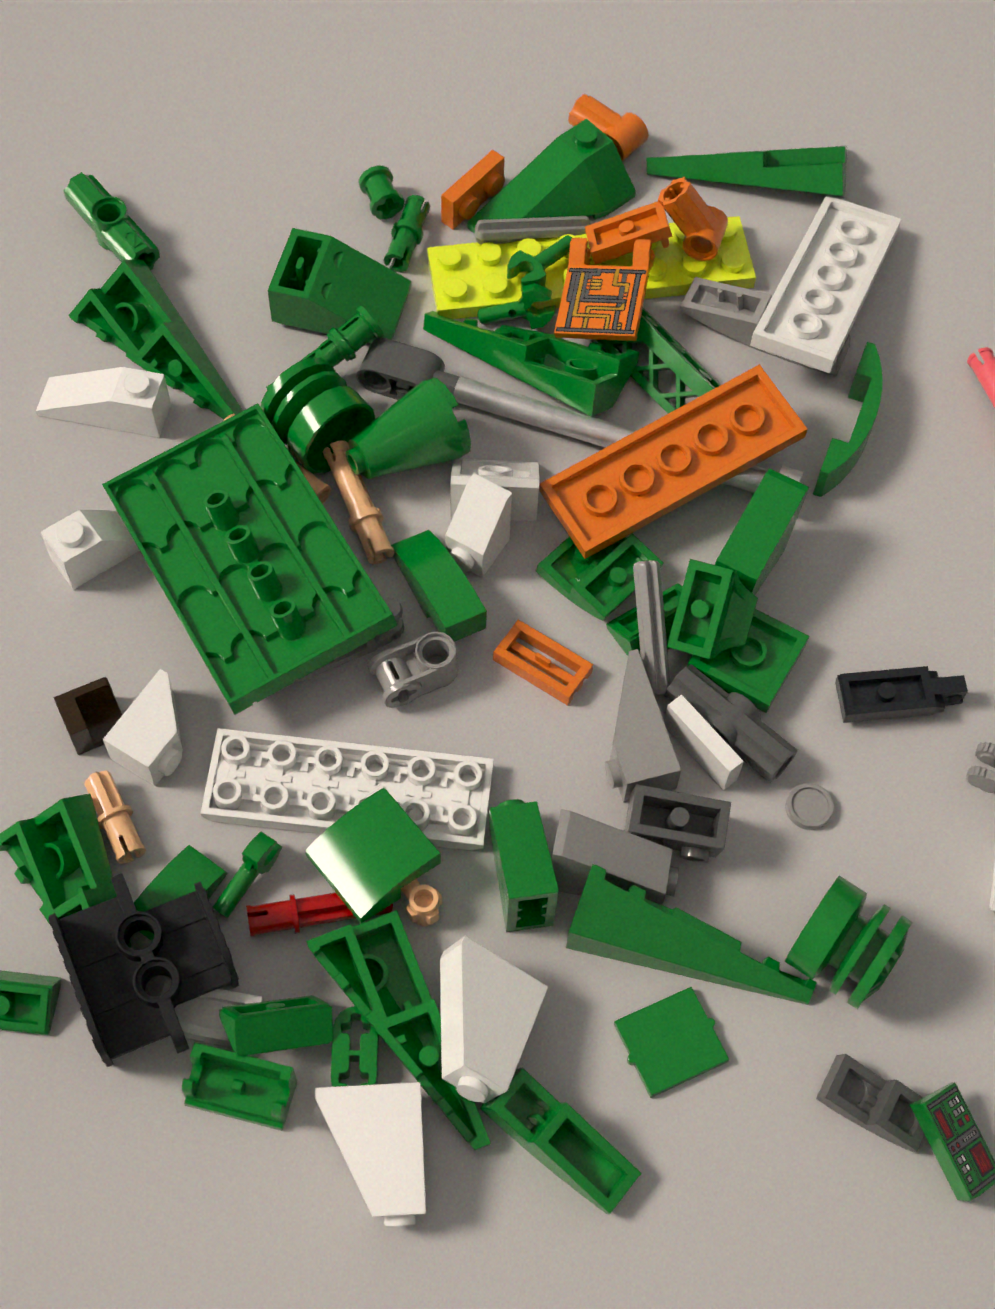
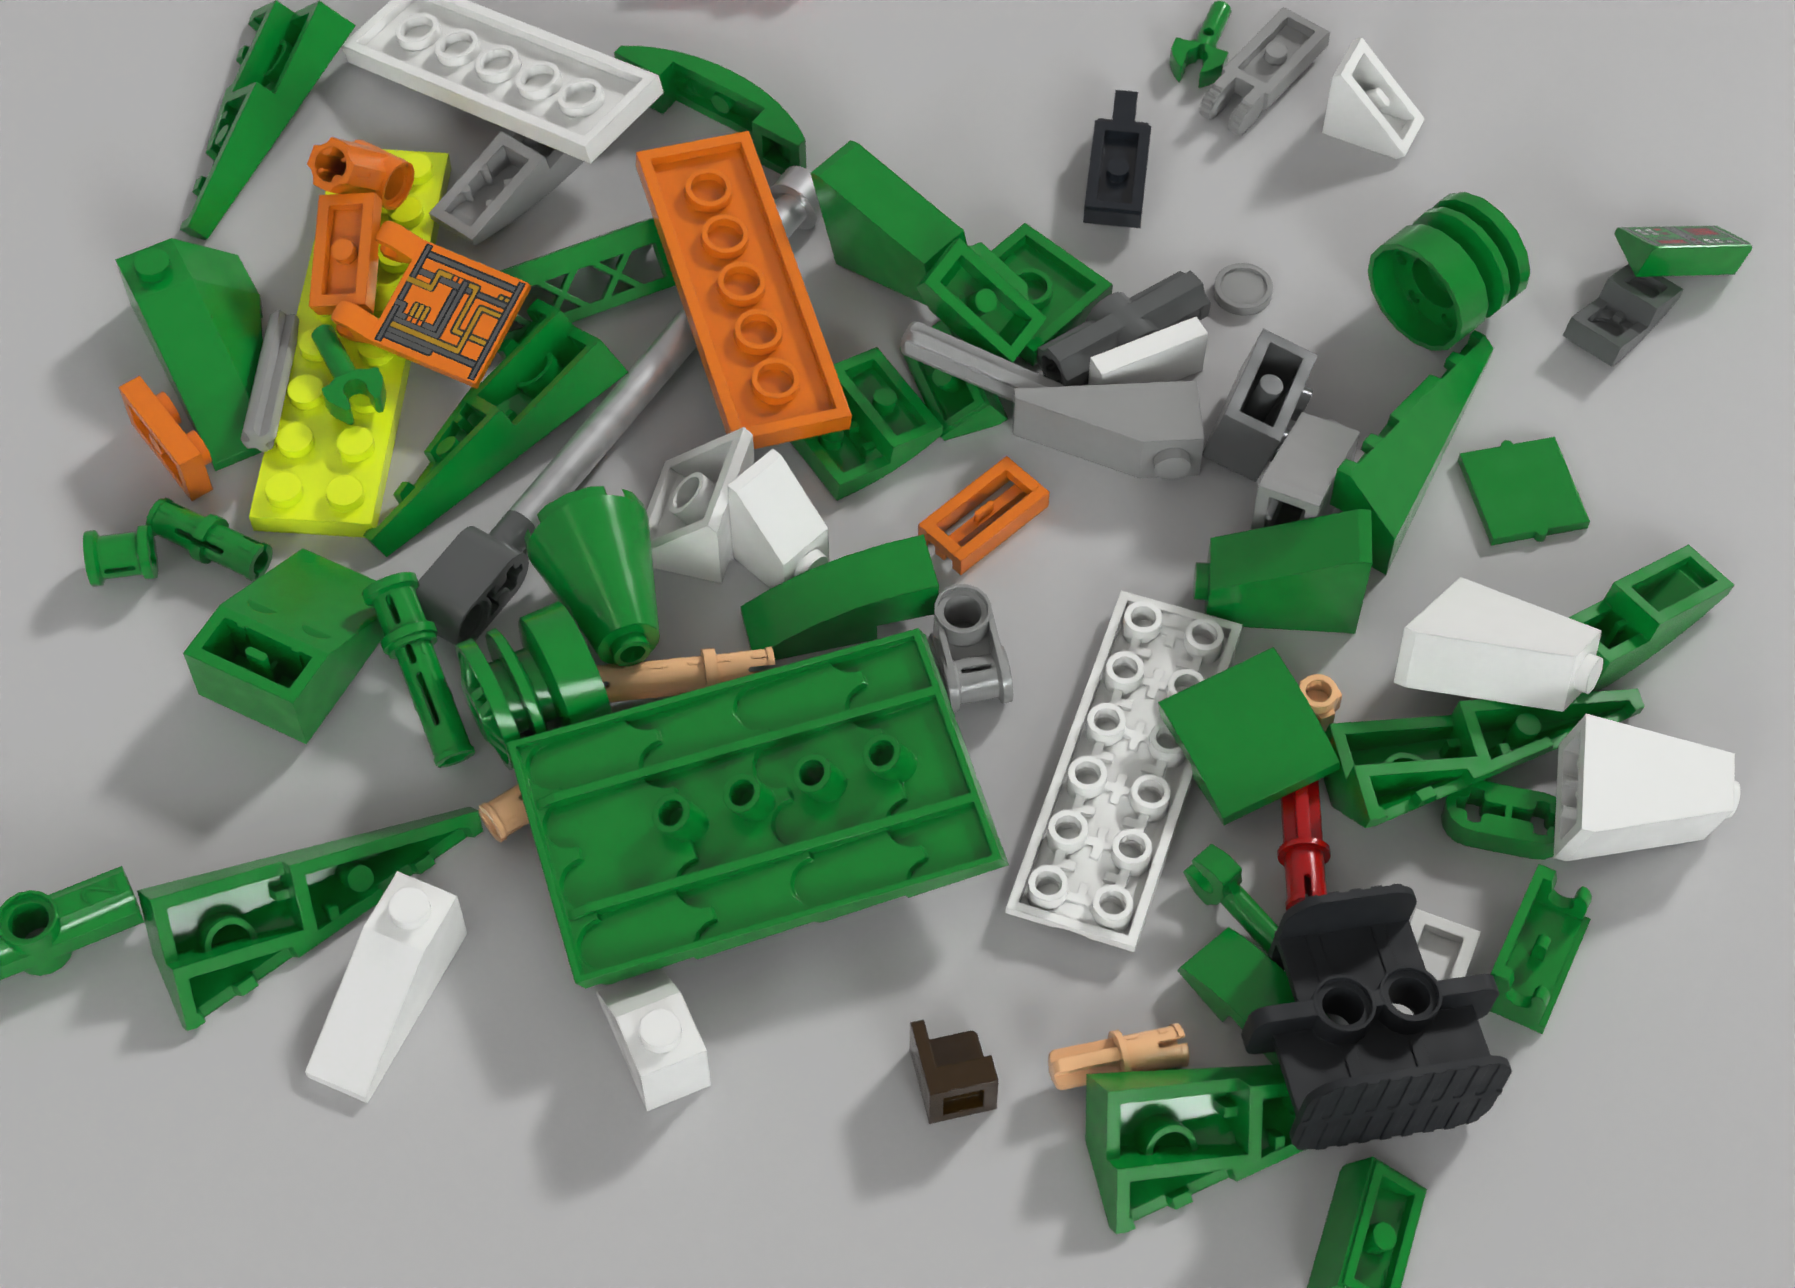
camera: 75 degrees left, 5 degrees down
(148, 733) = (996, 989): white slope -> none
(277, 1025) = (1464, 885): green slope -> none
(522, 308) = (413, 405): green bar -> none
(625, 131) = (93, 266): orange piece -> none

